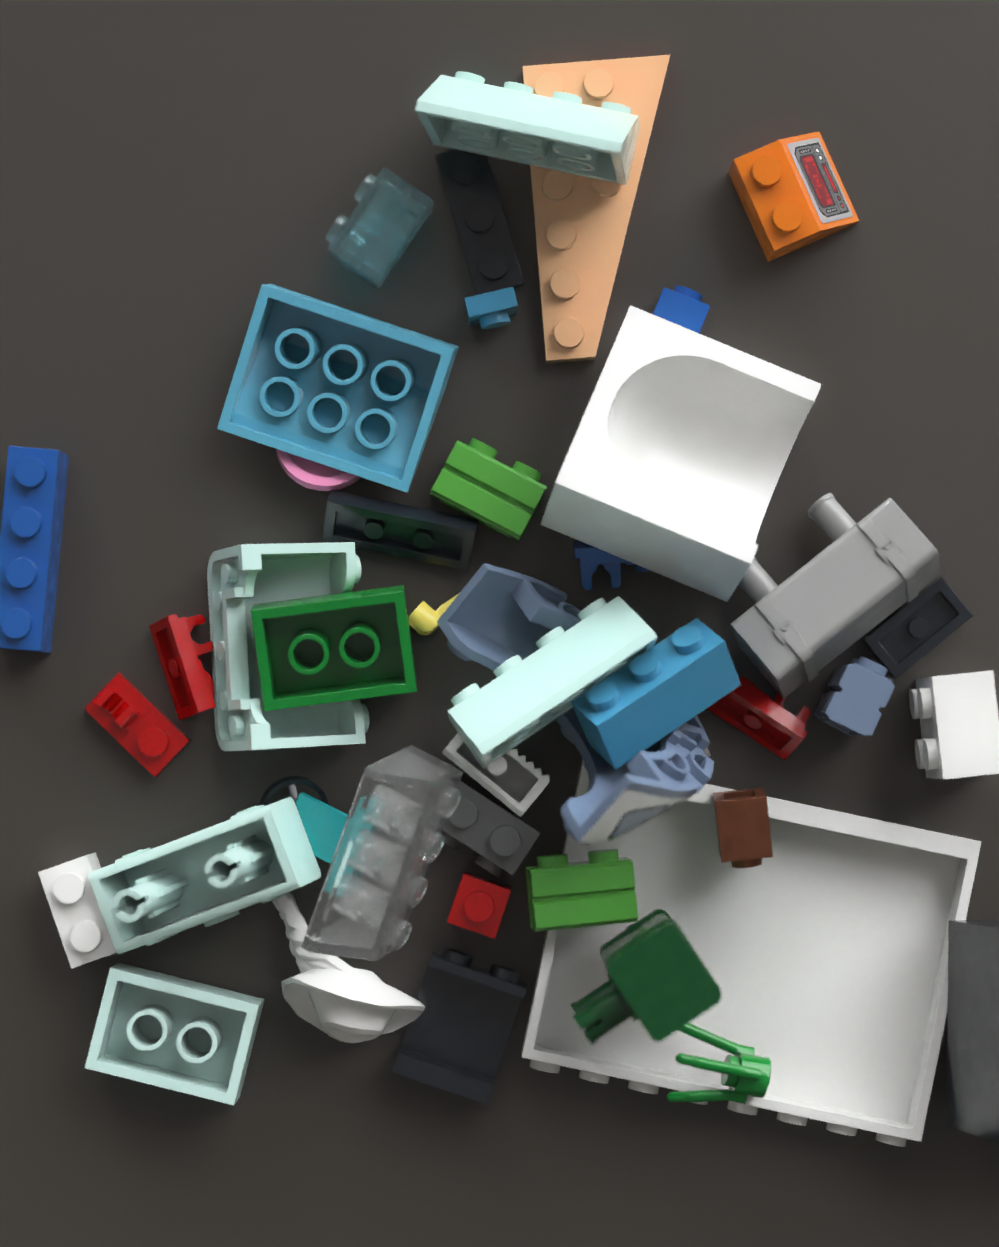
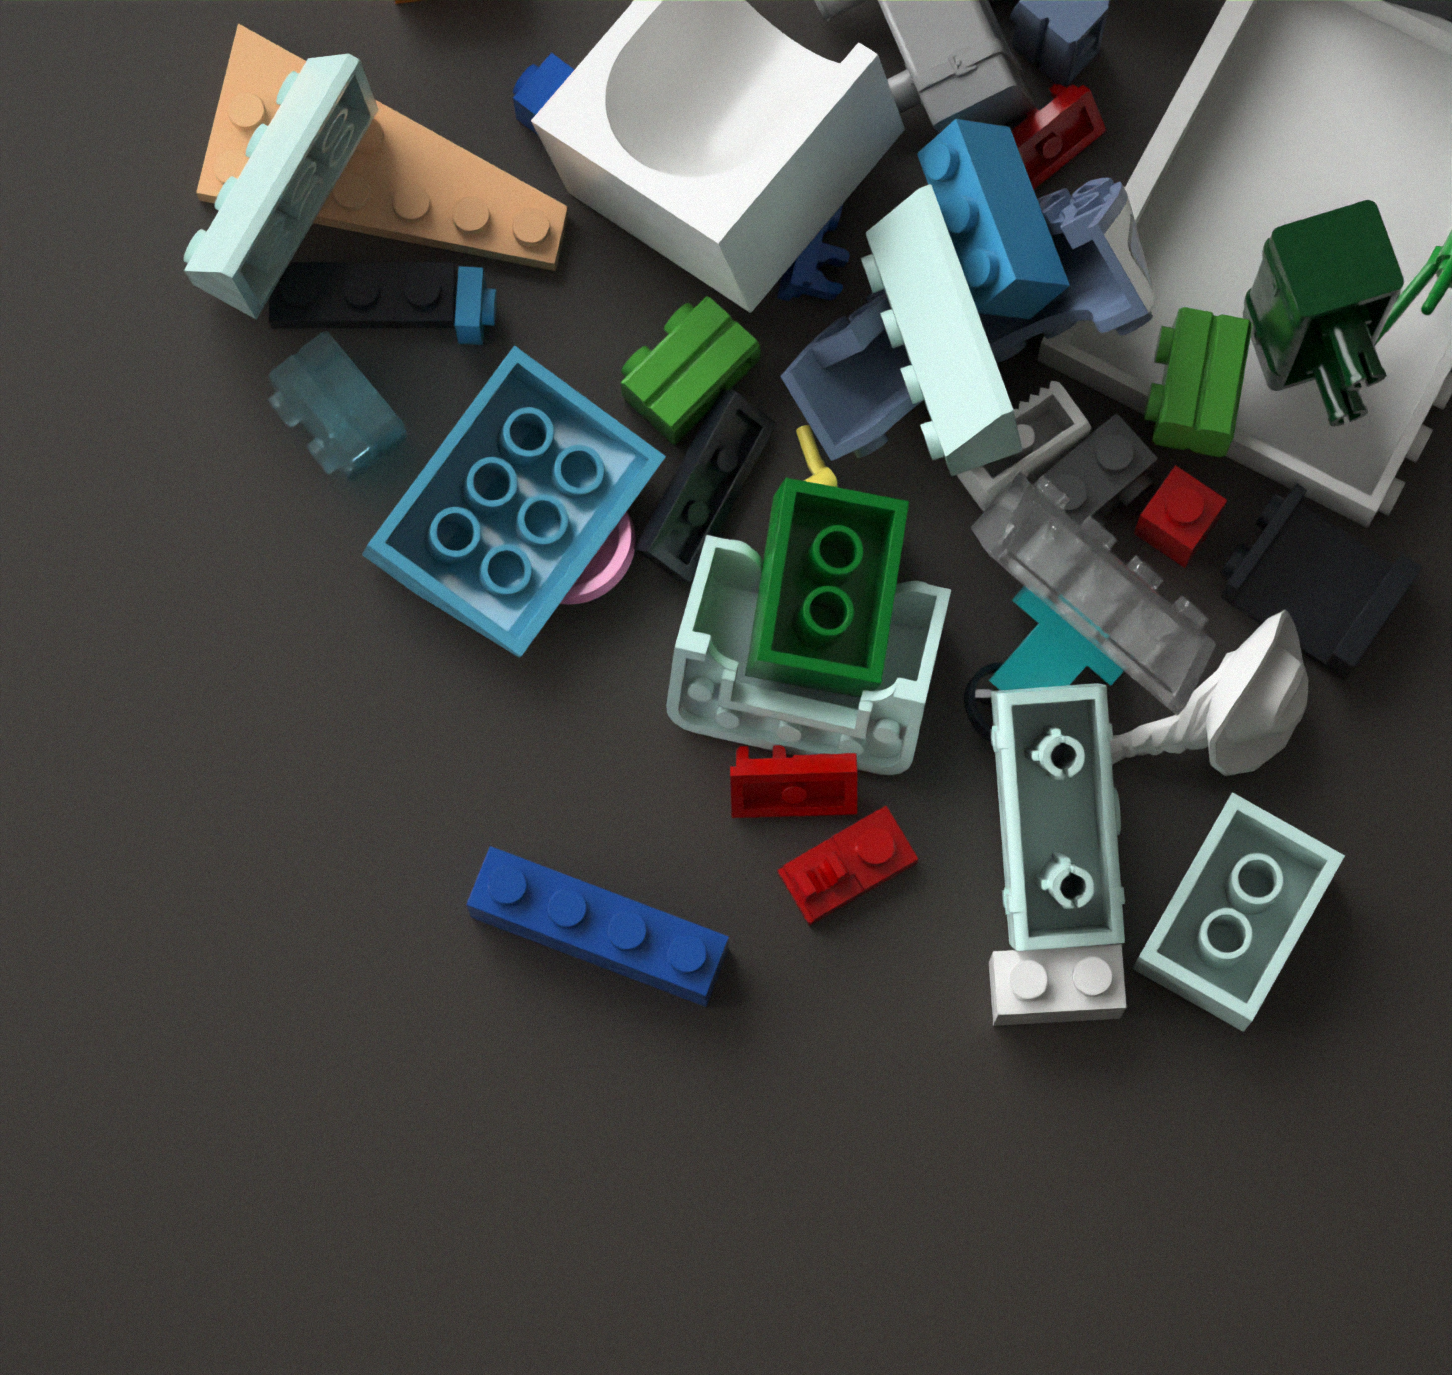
camera: 75 degrees left, 10 degrees down
(743, 827) = (1174, 179): copper brick -> none

